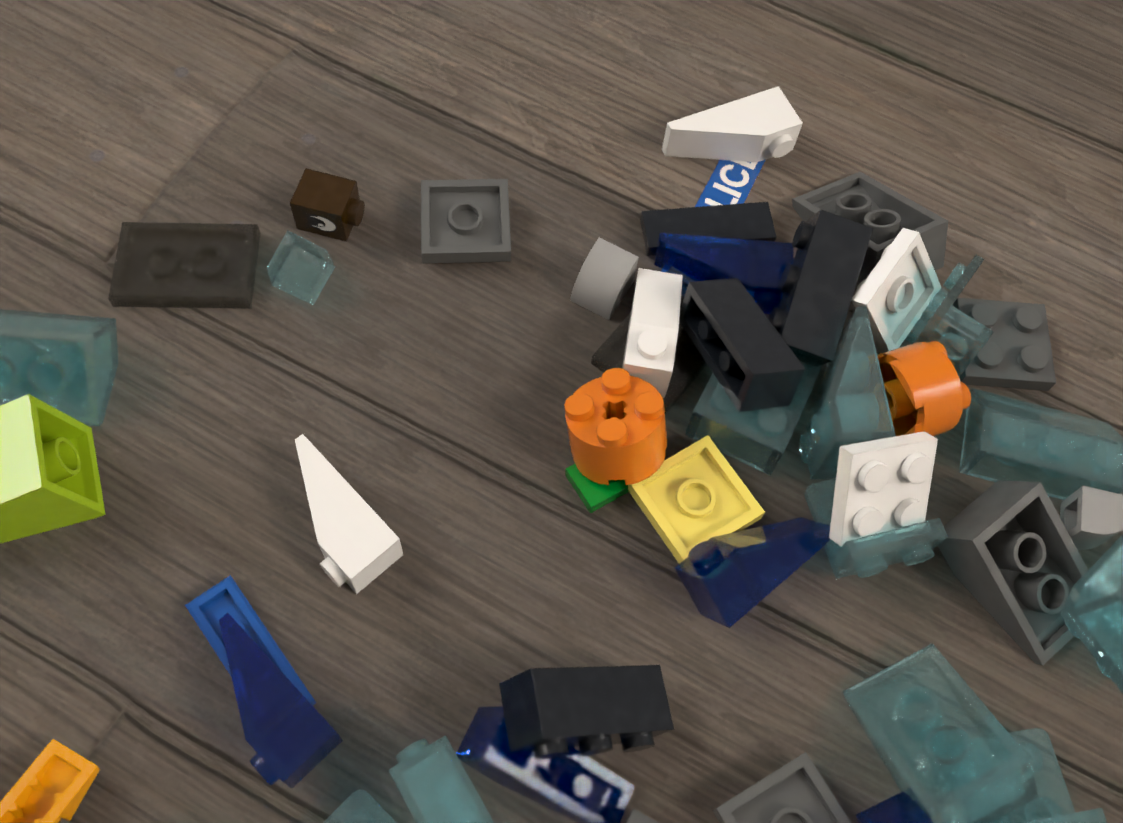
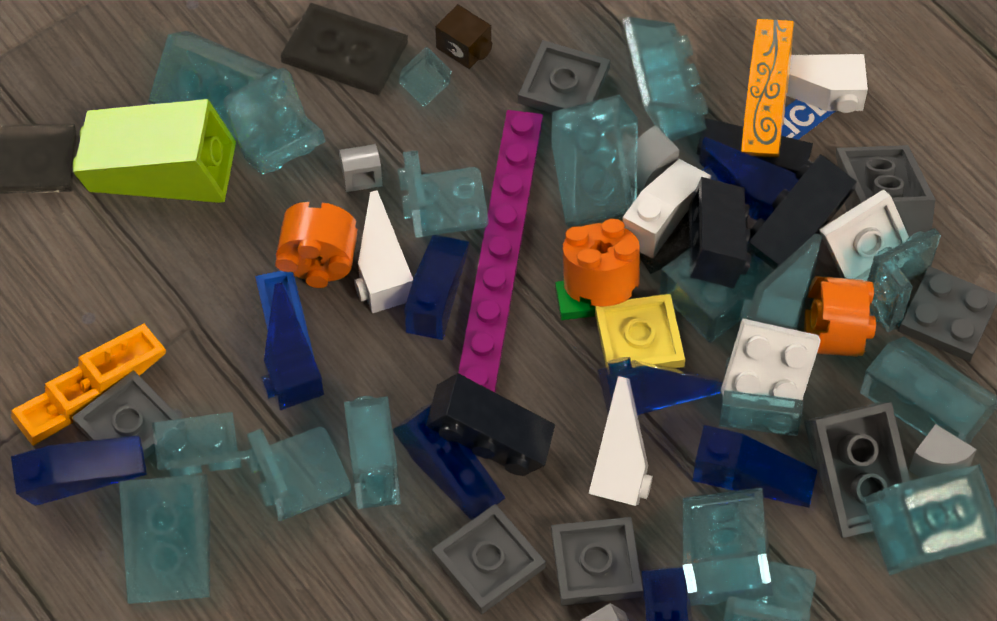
camera: 30 degrees right, 5 degrees down
(128, 390) = (271, 122): none -> clear light blue bracket
(251, 534) = (317, 243): none -> orange brick
(266, 407) = (361, 167): none -> light grey brick
(386, 413) = (442, 200): none -> clear light blue bracket
(424, 529) = (435, 287): none -> clear blue slope
(487, 475) = (501, 249): none -> magenta plate
(550, 302) = (595, 159): none -> clear light blue slope
(584, 176) = (666, 77): none -> clear light blue slope
(703, 154) = (767, 88): none -> light orange slope
(764, 687) = (622, 458): none -> white slope
(902, 621) = (743, 463): none -> clear blue slope

